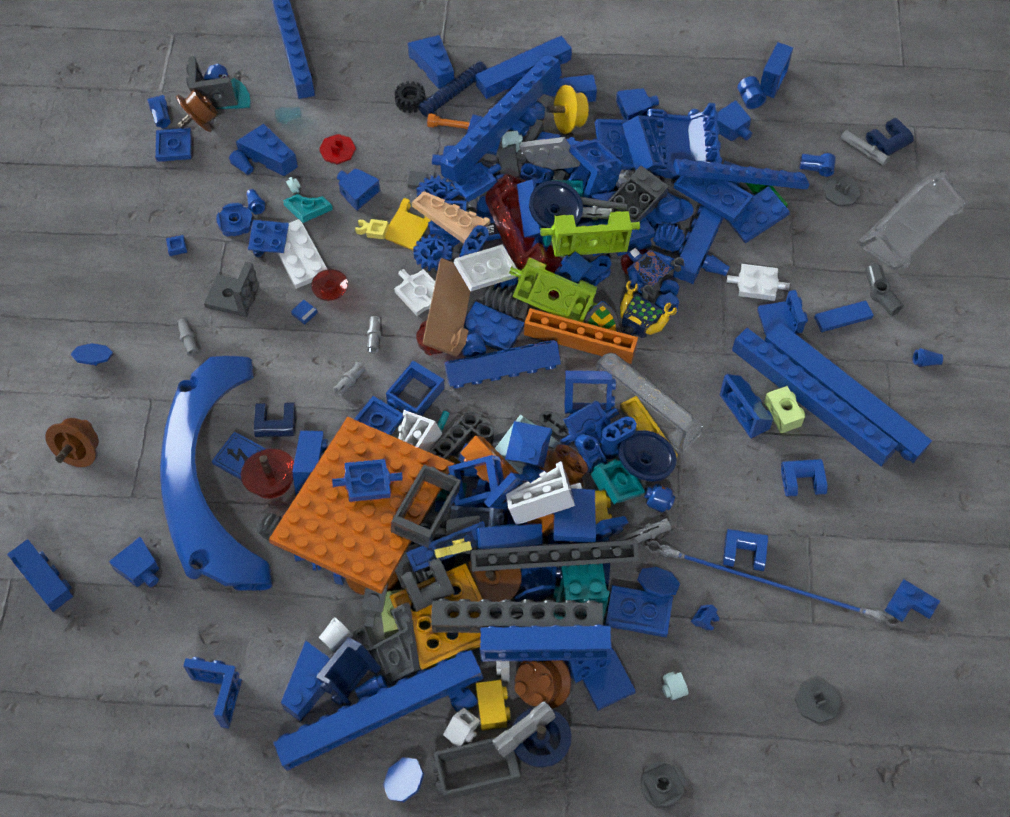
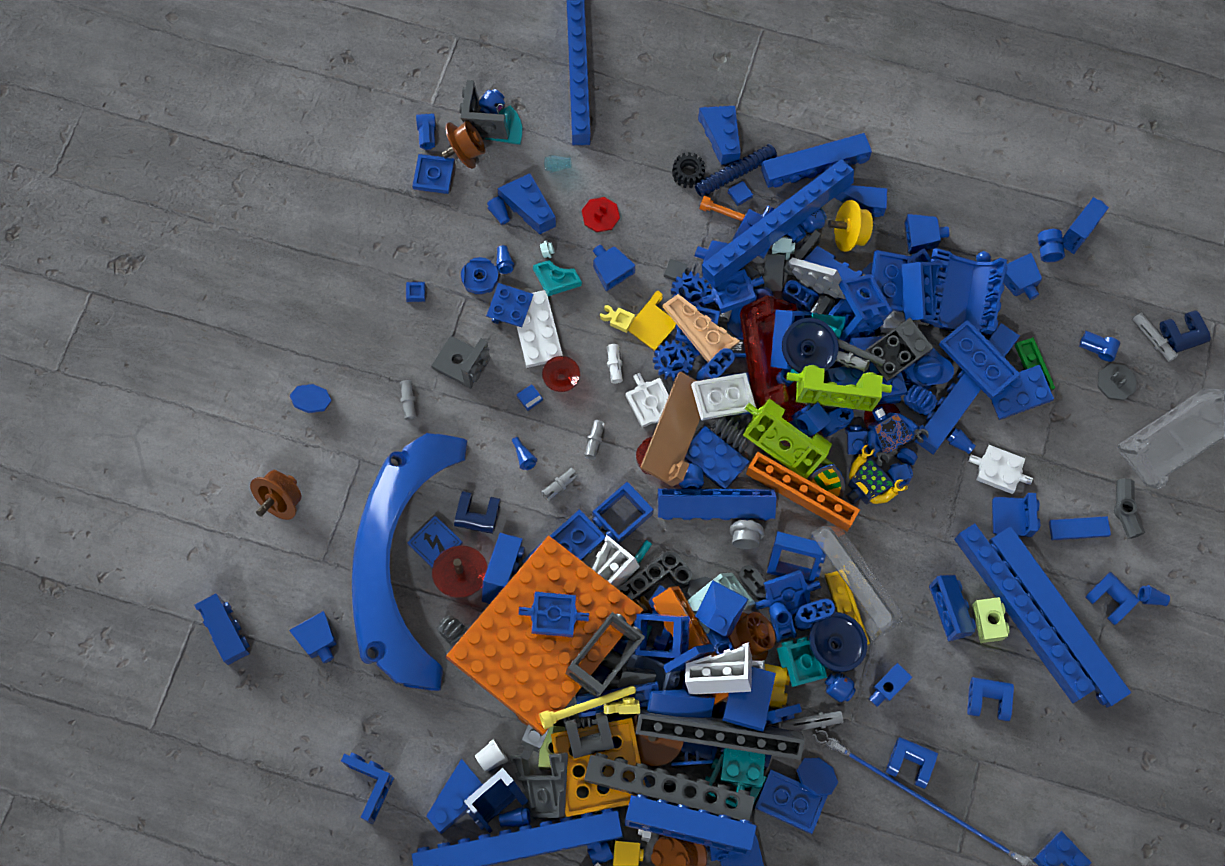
camera: 10 degrees right, 10 degrees up
(312, 364) = (525, 457): none -> blue cone
(378, 267) = (614, 363): none -> white pin
(383, 572) = (549, 718): none -> light yellow piece
(461, 107) = (740, 193): none -> blue tile
(537, 383) = (746, 534): none -> light grey piece
(618, 283) = (856, 439): none -> blue bracket
(704, 616) = (853, 823): blue tile -> none
(706, 483) = (896, 678): none -> blue torso
(740, 174) = (1013, 345): blue plate -> none
(893, 360) = (1118, 592): none -> blue connector

